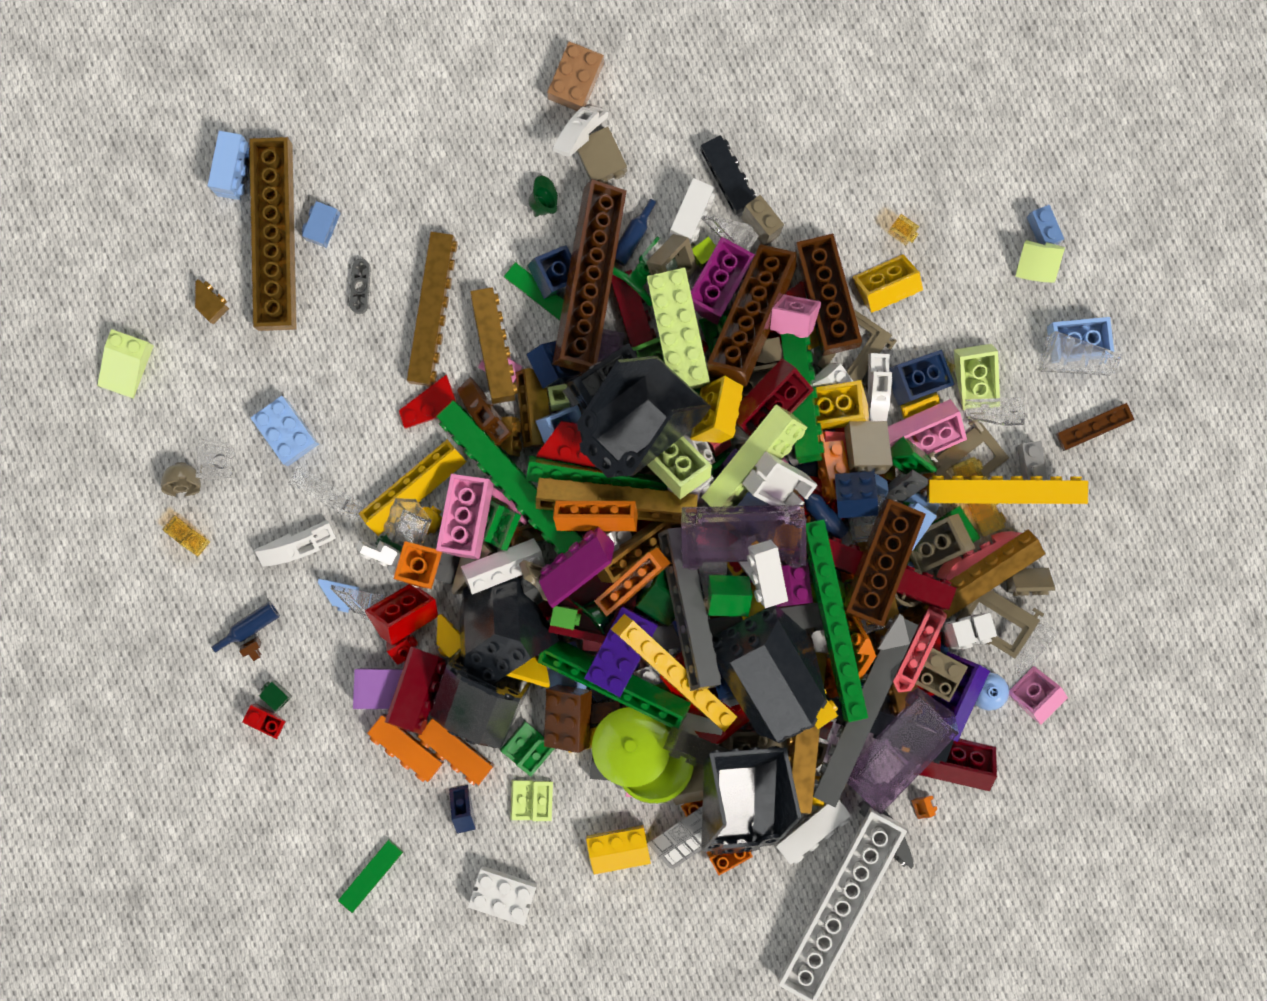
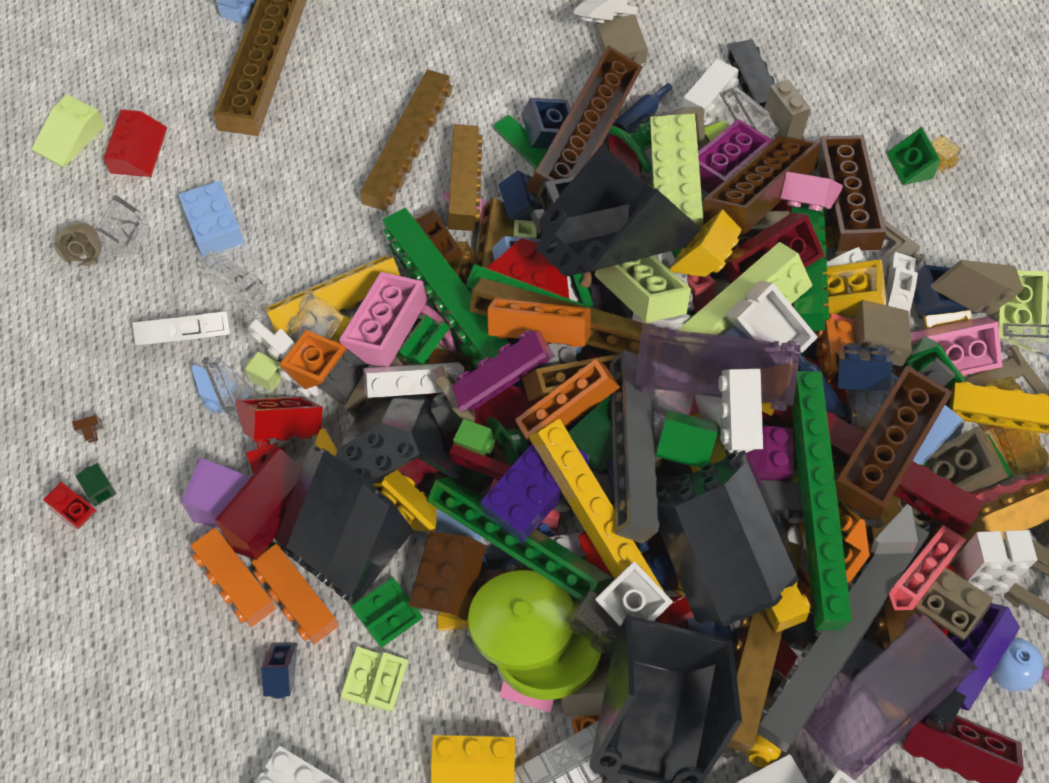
camera: 15 degrees right, 25 degrees down
(185, 535) = (63, 298): clear yellow slope -> none
(190, 365) = (134, 144): none -> red slope
(209, 304) = (176, 95): pearl gold slope -> none
(249, 625) = (95, 403): dark blue piece -> none
(320, 224) = (316, 50): medium blue brick -> none
(364, 300) = (337, 102): dark grey beam -> none
(370, 876) = (132, 733): green tile -> none
(374, 570) = (263, 371): none -> yellowish green brick
(427, 404) = (369, 227): red wing -> none
(544, 197) = (552, 64): dark green piece -> none
(710, 729) = (633, 595): none -> white slope
(878, 241) = (914, 158): none -> green slope
(888, 283) = (921, 199): yellow slope -> none
(948, 379) = (980, 285): none -> dark tan slope

